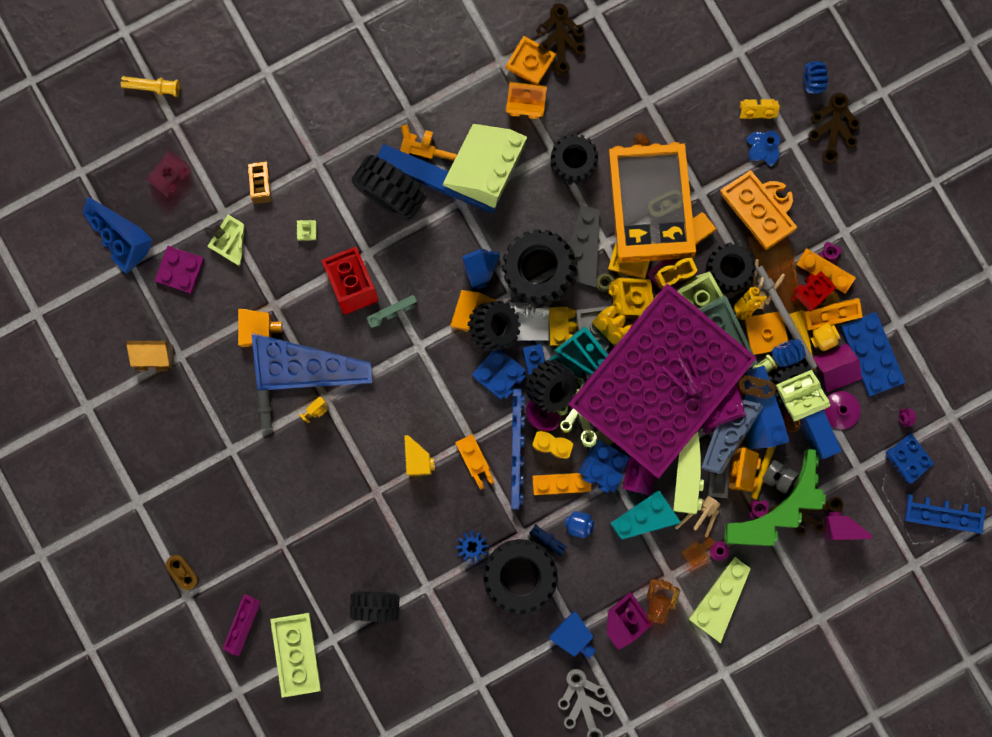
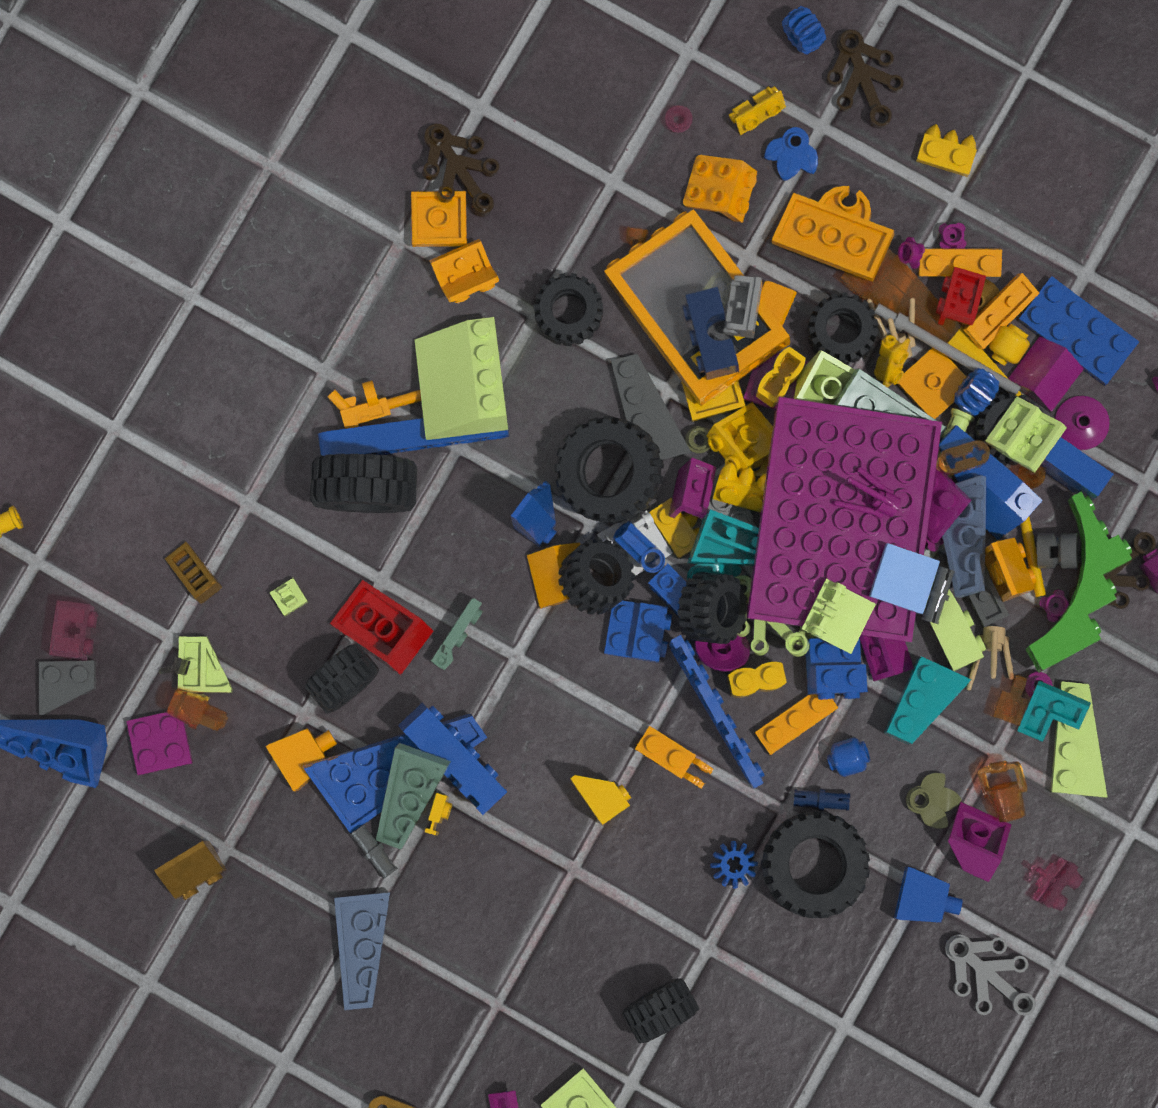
camera: 30 degrees left, 0 degrees up
(145, 201) = (64, 682): none -> dark grey wing
(209, 261) = (195, 710): none -> clear orange piece
(225, 455) = (360, 942): none -> sand blue wing
(305, 385) = (409, 789): none -> sand green wing
(307, 295) = (342, 678): none -> black tyre
(343, 381) = (464, 771): none -> blue wedge
(530, 323) = (638, 546): none -> blue piece
(583, 309) = (693, 488): none -> magenta panel
(616, 582) = (936, 800): none -> olive plate
(623, 435) = (838, 616): none -> yellowish green hinge
(644, 237) = (704, 310): none -> dark blue arch
(658, 673) = (1053, 881): none -> clear pink hips
(676, 437) = (904, 578): none -> light blue tile
(679, 218) = (743, 306): none -> light grey hinge
(691, 459) = (938, 595): none -> dark grey pin
(708, 81) = (678, 111): none -> clear pink plate
(709, 141) = (720, 186): none -> light orange bracket
(718, 566) = (1050, 704): none -> teal plate
(799, 246) = (911, 252): none -> magenta plate
(857, 201) = (946, 152): none -> yellow plate

